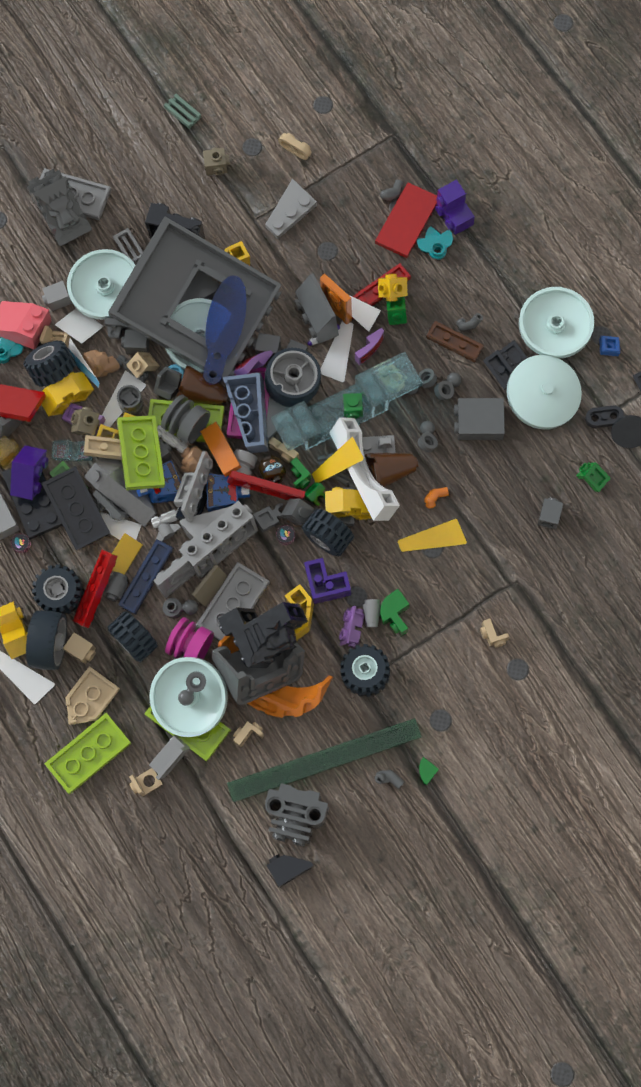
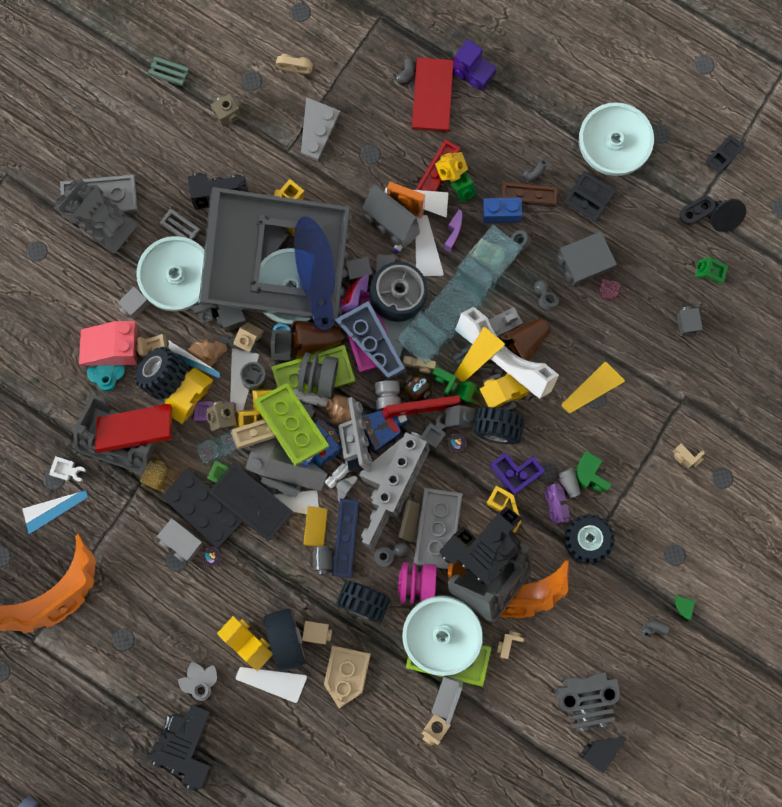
camera: 30 degrees left, 5 degrees up
(26, 472) = (190, 487): dark purple brick -> none
(57, 589) = (270, 587): black wheel -> none
(79, 325) = (168, 323): white sticker -> none
(87, 753) = (369, 727): lime plate -> none
(95, 588) = (305, 571): red plate -> none
(186, 696) = (443, 637): dark grey plate -> none
(220, 449) = (362, 388): orange tile -> none
(324, 760) = (588, 638): clear green plate -> none
(353, 405) = (465, 295): green bracket -> none
(422, 344) = (502, 210): none -> blue brick
(433, 495) = (575, 349): orange arm -> none
(435, 241) = (468, 104): teal plate -> none
(452, 380) = (542, 244): dark grey plate -> none
(489, 455) = (609, 289): none -> clear pink tile
(544, 392) = (633, 209): light aqua dish -> none
(609, 345) = (672, 141): blue tile -> none

